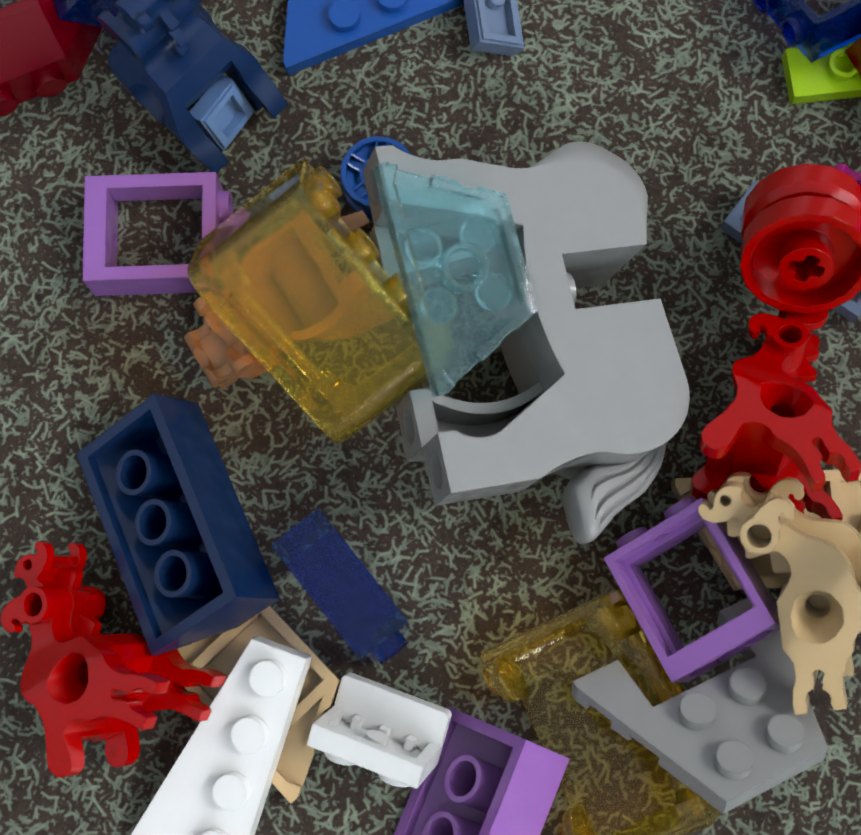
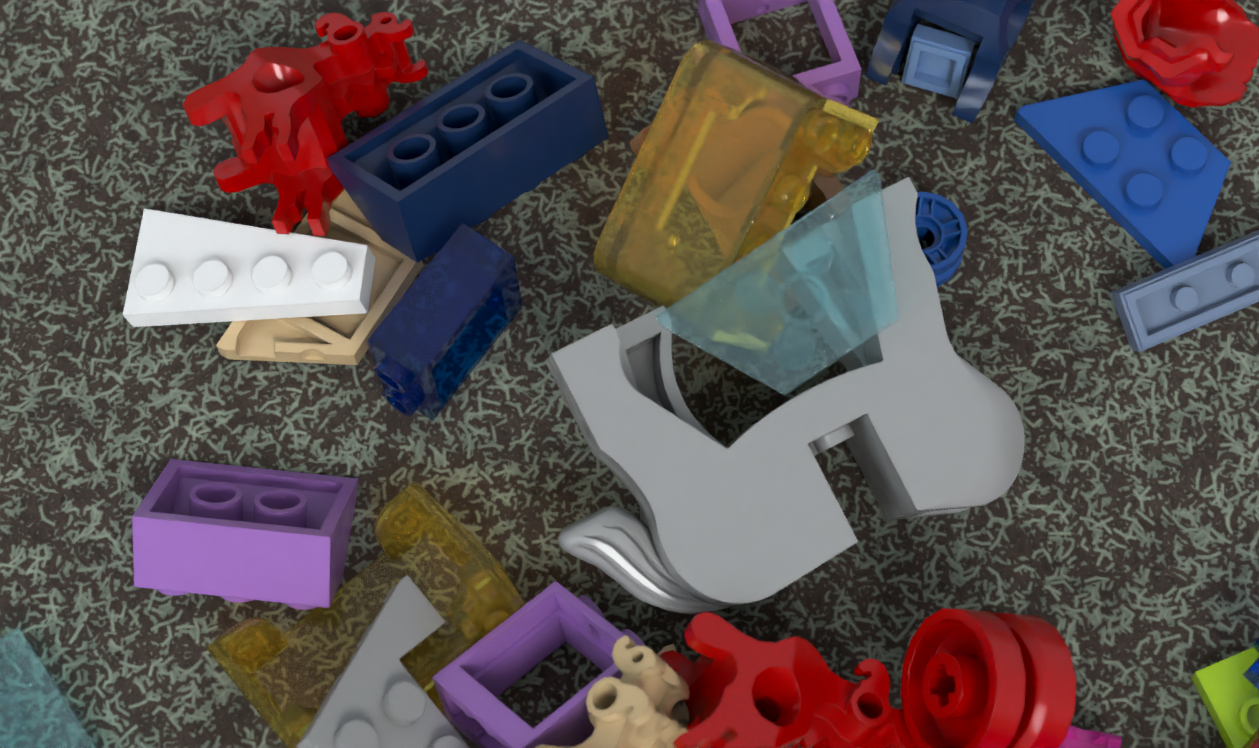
camera: 75 degrees right, 10 degrees down
(382, 731) = (308, 409): white bracket -> none

